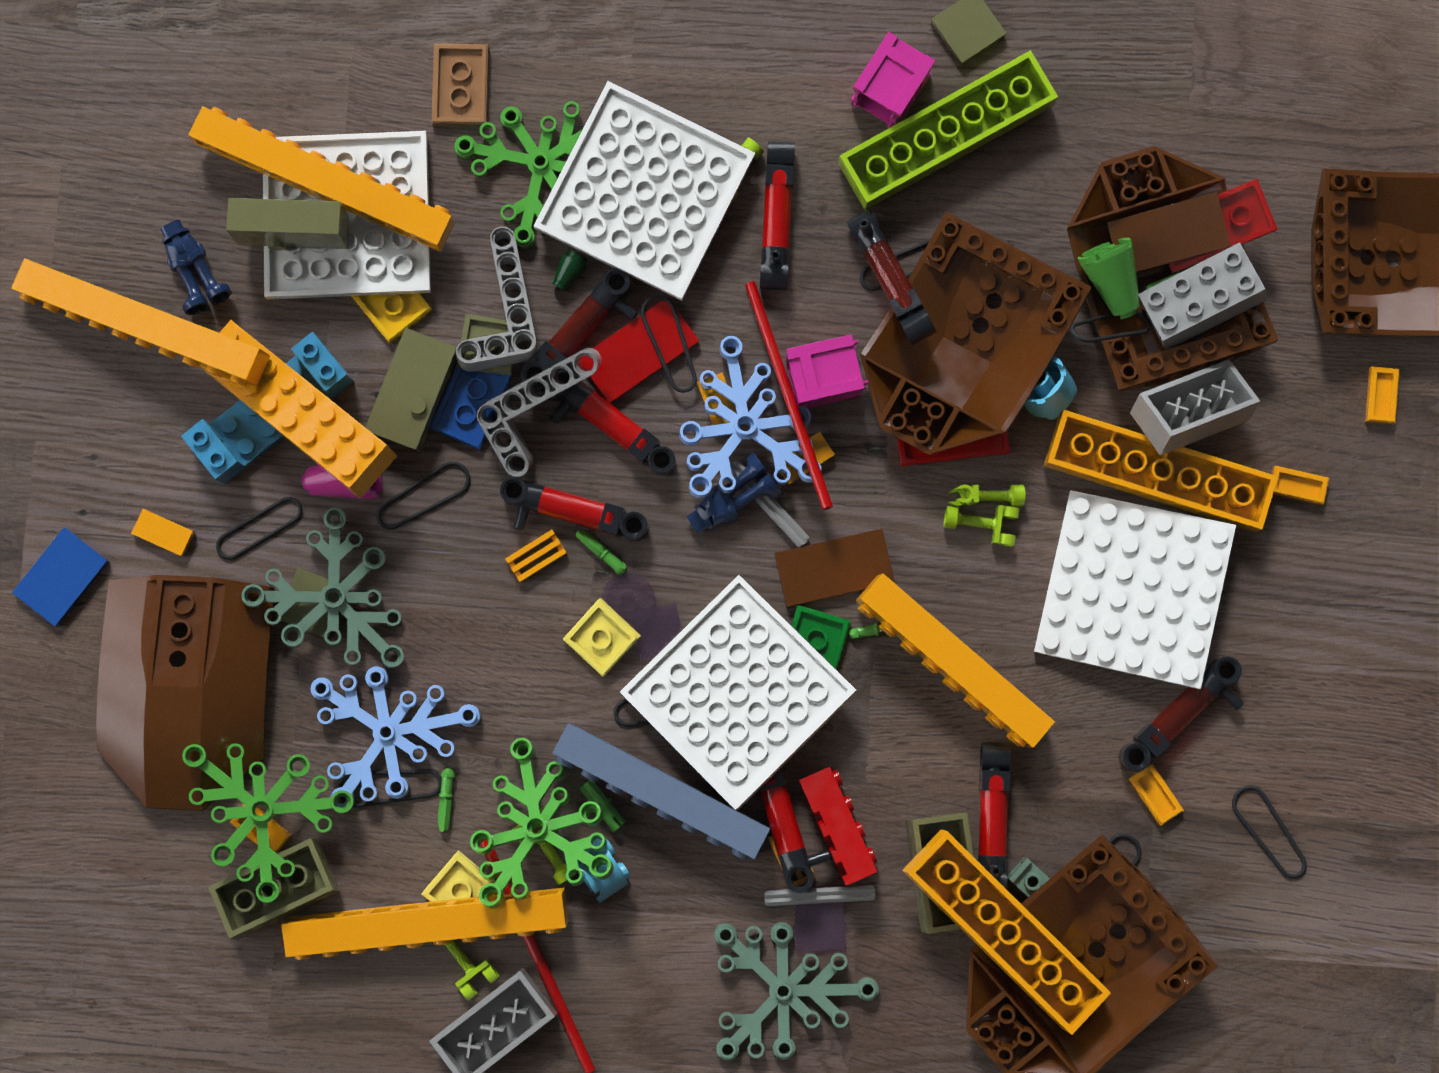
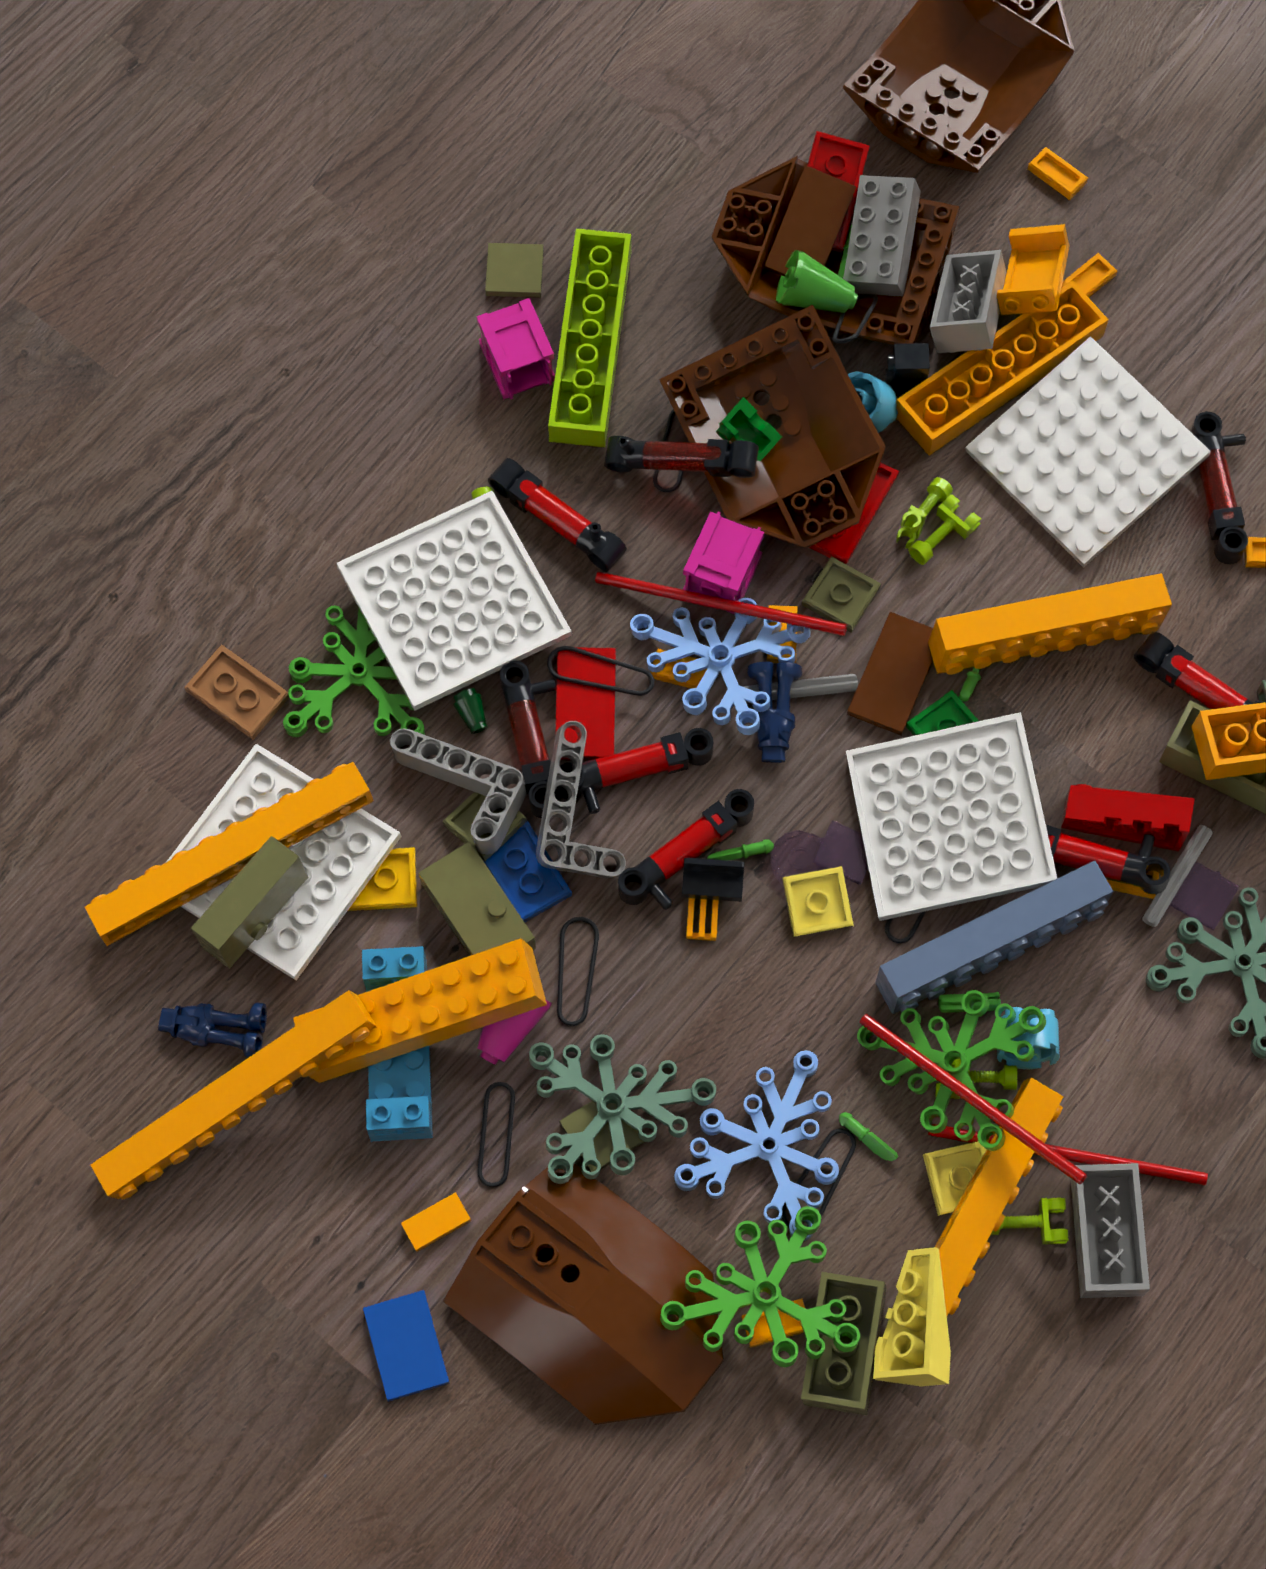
camera: 55 degrees left, 15 degrees down
(307, 939) = (917, 1335): none -> light yellow wedge
(512, 863) = (974, 1099): none -> red piece
(558, 549) = (713, 879): none -> black panel
(871, 480) = (841, 594): none -> olive tile
(950, 313) = (746, 425): none -> green cylinder
(1100, 398) = (907, 367): none -> black brick
(1265, 440) = (1034, 270): none -> light orange panel

